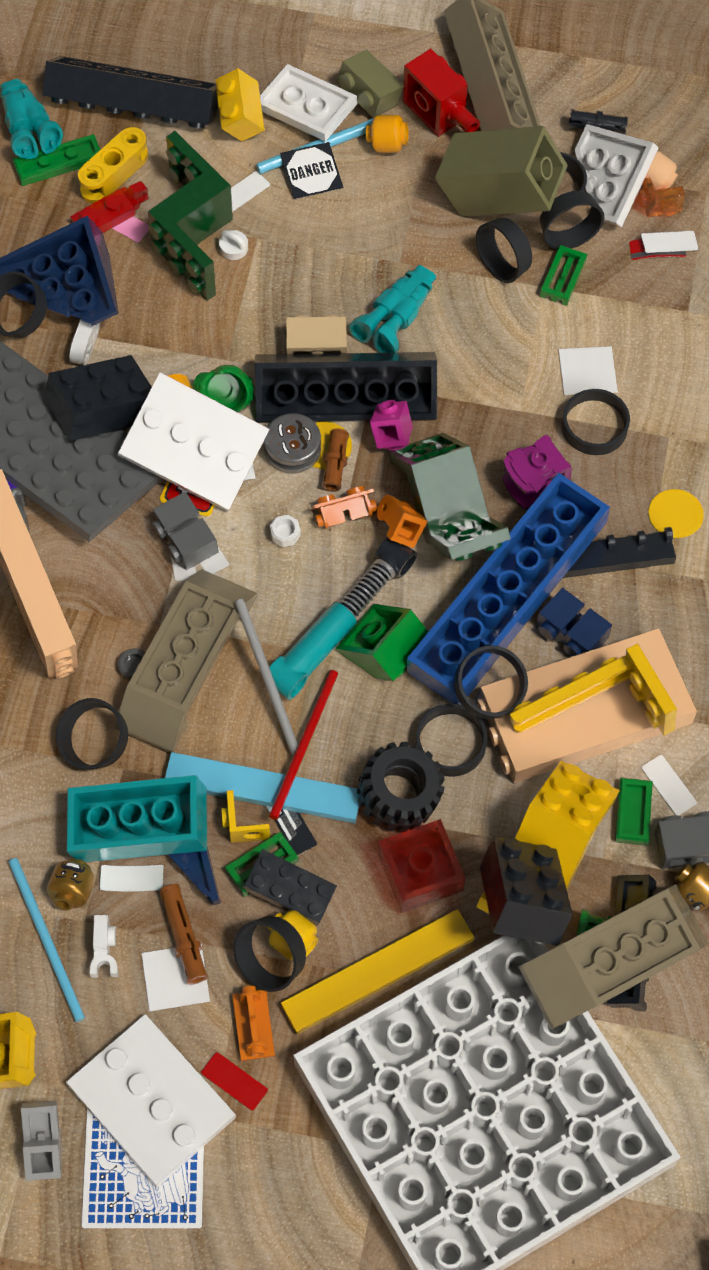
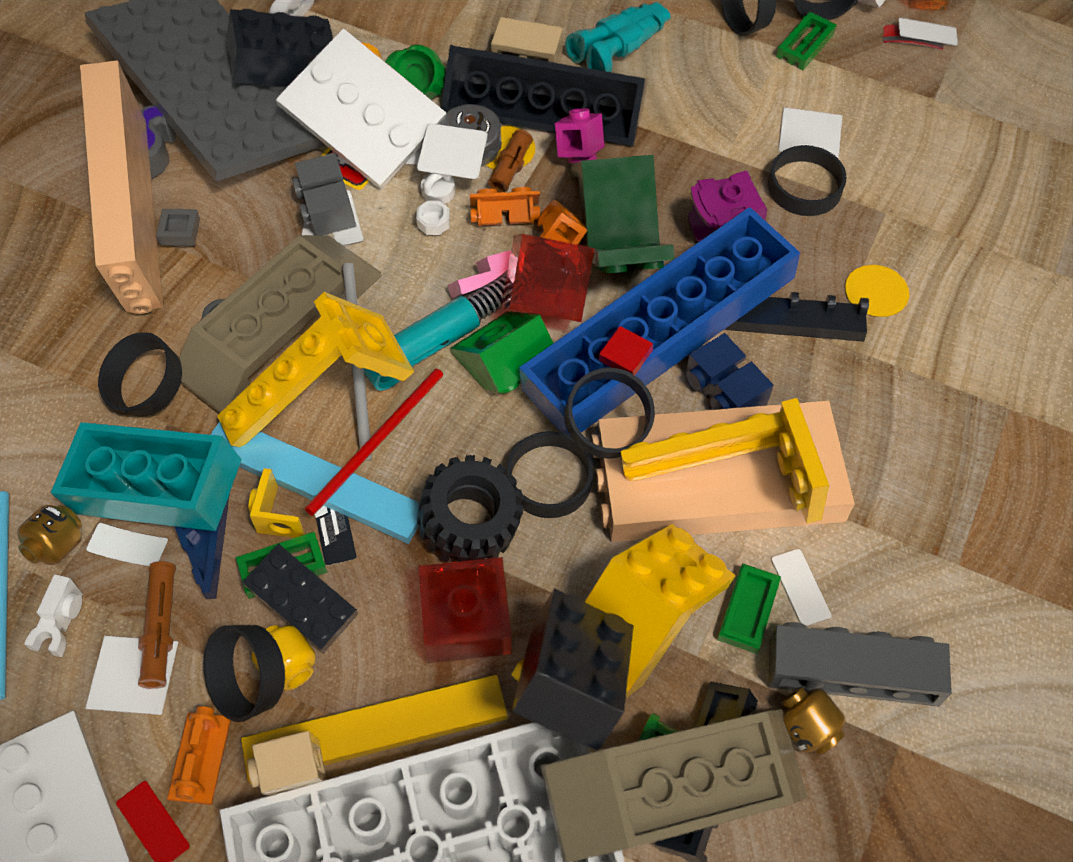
camera: 15 degrees right, 5 degrees down
(68, 589) = (178, 227): none -> dark grey plate
(266, 664) = (341, 330): none -> yellow bracket
(279, 499) = (438, 187): none -> white tile
(286, 466) = (452, 151): none -> white sticker
(332, 1011) = (286, 764): none -> tan brick
(351, 572) = (488, 268): none -> bright pink slope
(406, 573) = (547, 277): none -> clear red brick
(491, 627) = (626, 351): none -> red tile

